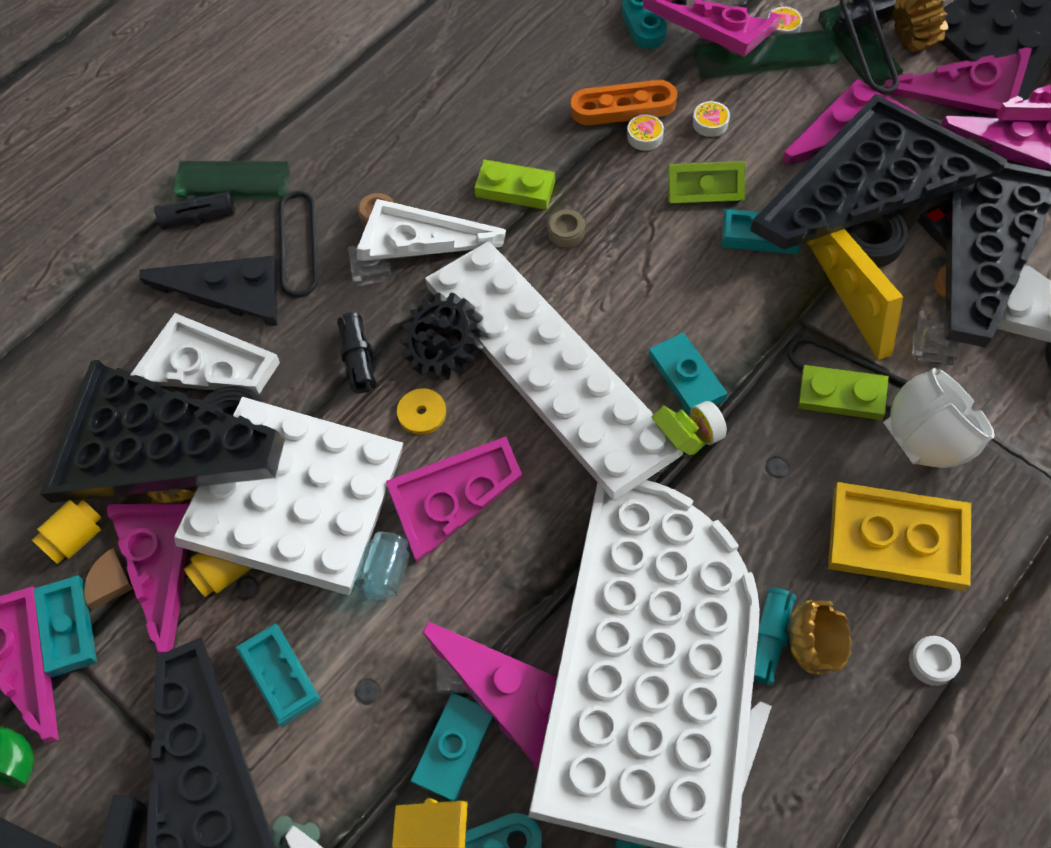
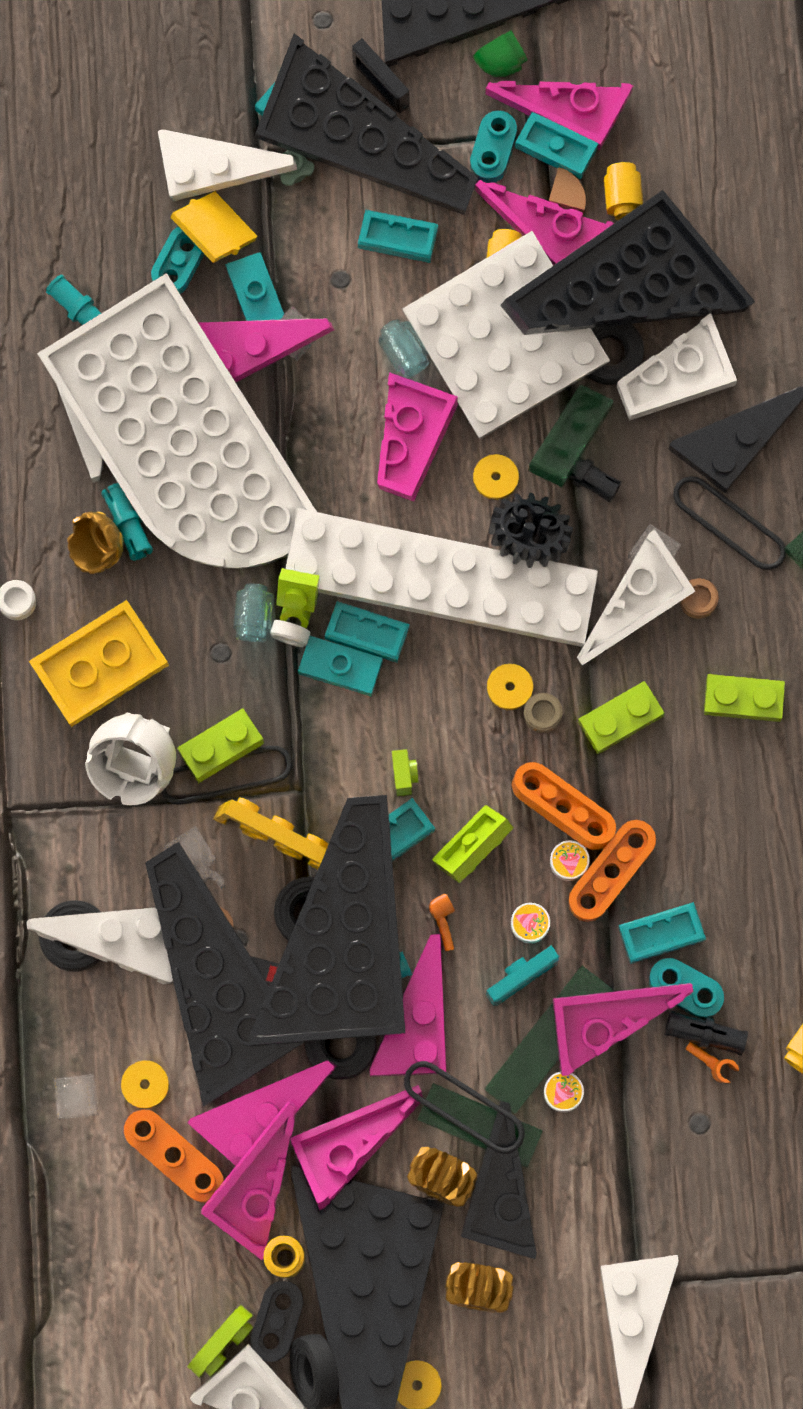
camera: 135 degrees right, 15 degrees up
(110, 683) = (494, 145): none -> teal plate
(336, 375) = (570, 435): none -> clear green tile
(420, 134) = (744, 698): none -> lime plate
(571, 274) = (509, 674): none -> yellow wheel
(616, 158) = (555, 791): none -> orange plate
(628, 50) = (662, 933): none -> teal plate
(643, 374) = (367, 631): none -> teal plate
(713, 260) = (404, 772): none -> lime plate
(725, 462) = (253, 613): none -> clear light blue brick
(750, 88) = (521, 974): none -> teal plate
(767, 167) = (439, 909): none -> orange hand

